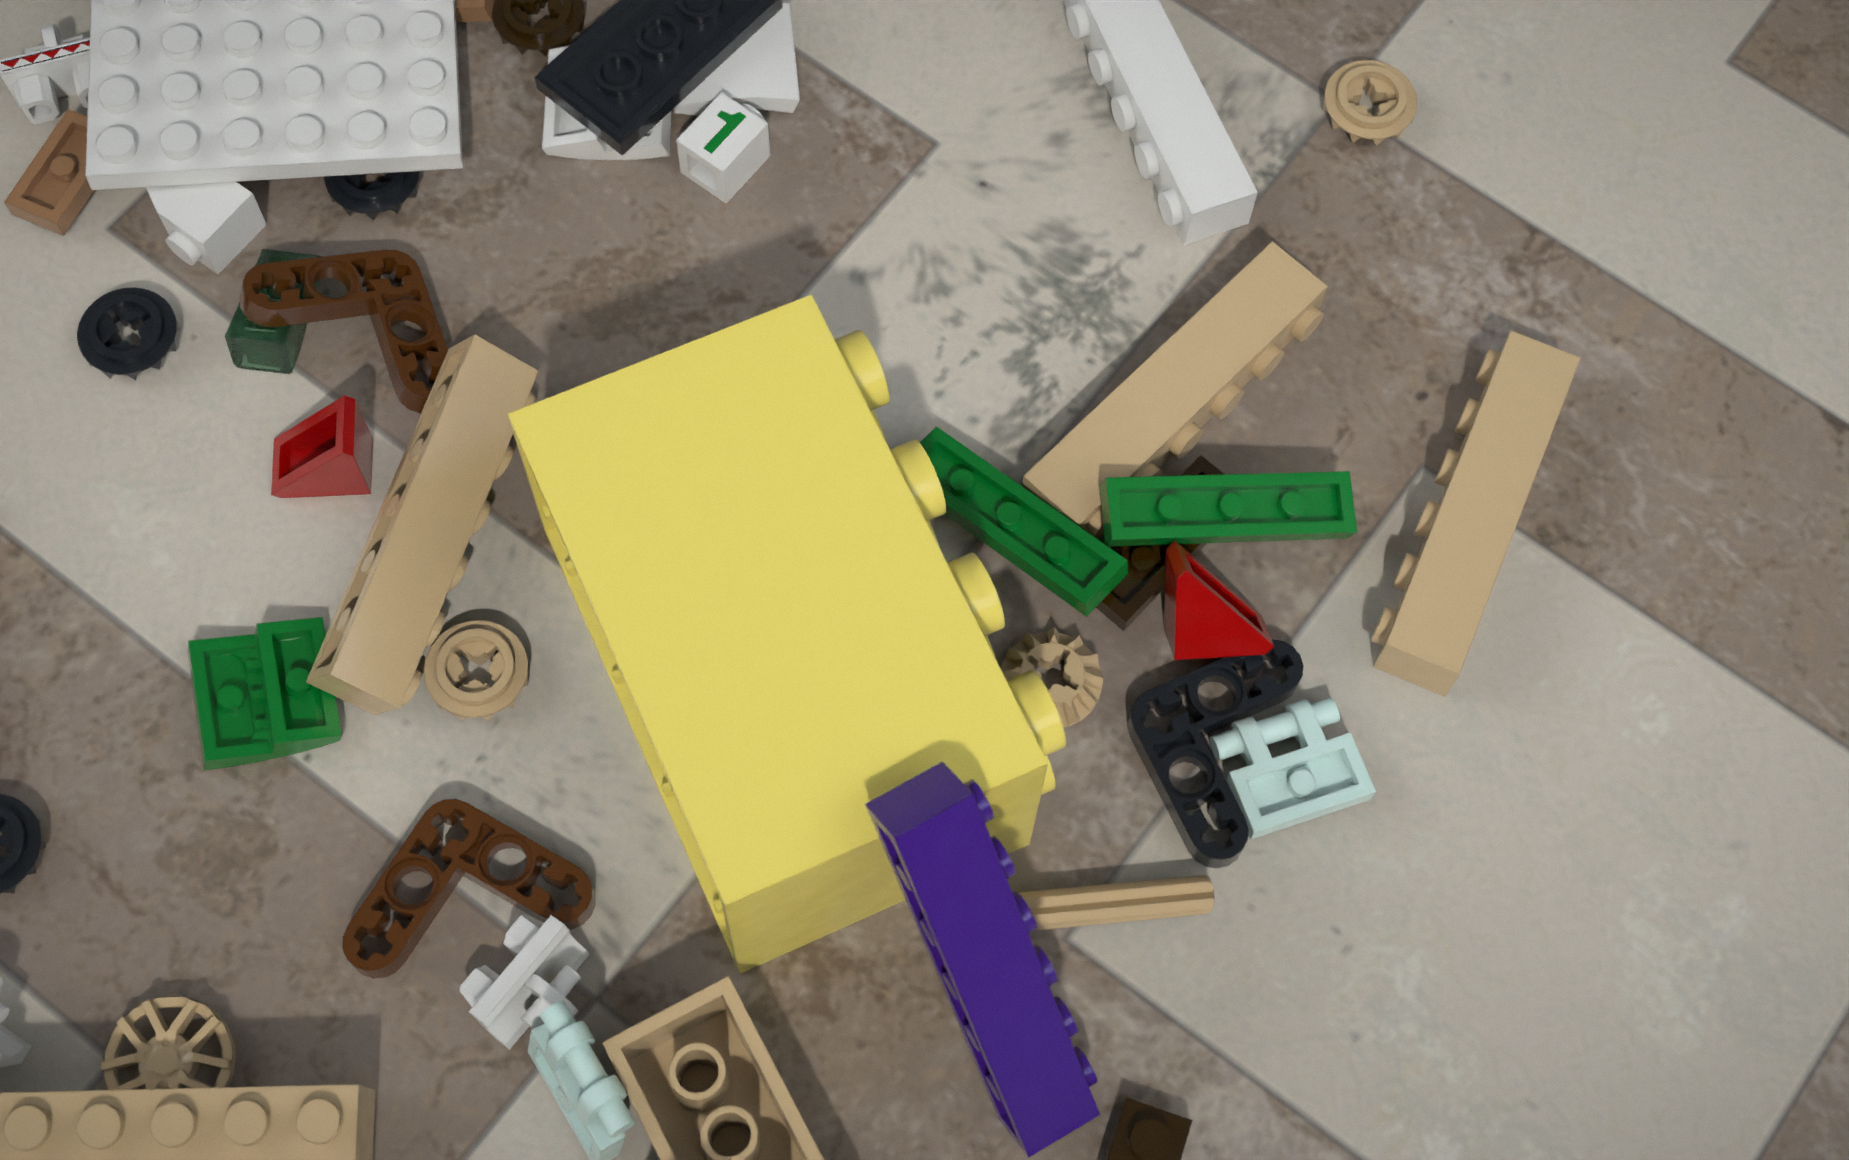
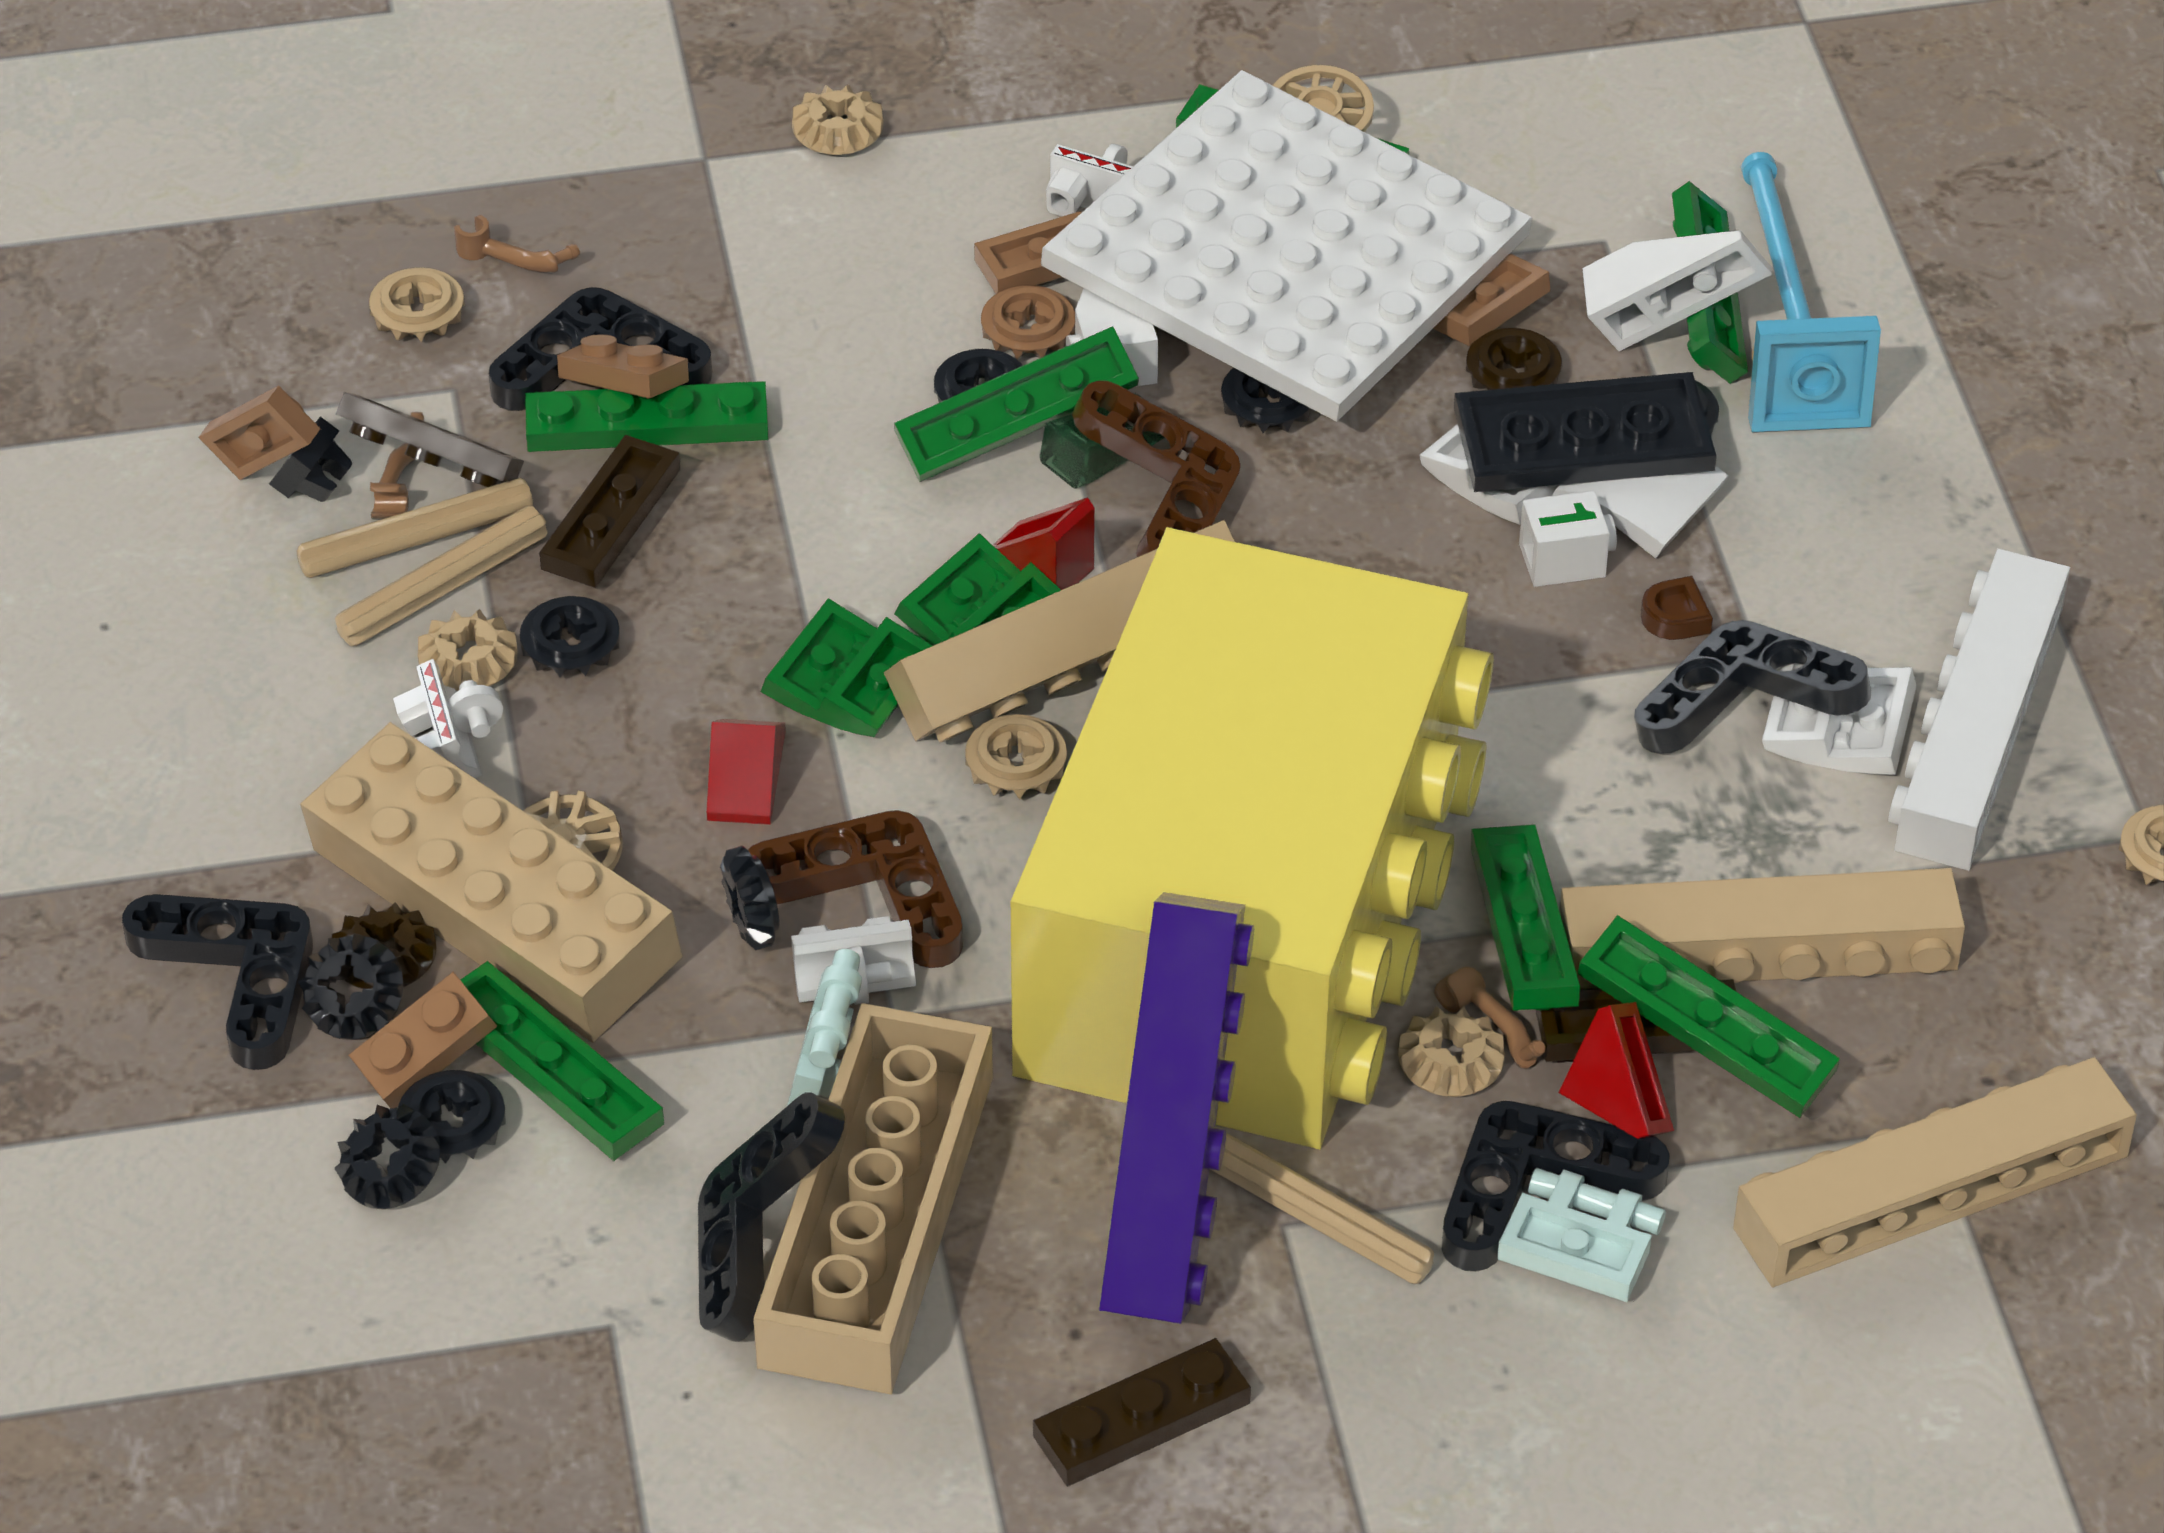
camera: 45 degrees right, 20 degrees down
(86, 245) = (1014, 306): none -> medium nougat gear
(182, 337) = (1011, 404): none -> green plate
(260, 858) = (744, 770): none -> red slope
(310, 543) = (971, 591): none -> green slope
(394, 997) = (750, 897): none -> black gear
(852, 149) = (1675, 610): none -> reddish brown tile
(964, 163) = (1745, 656): none -> black beam
(1018, 611) = (1468, 986): none -> medium nougat piece
(1049, 155) = (1854, 742): none -> white slope

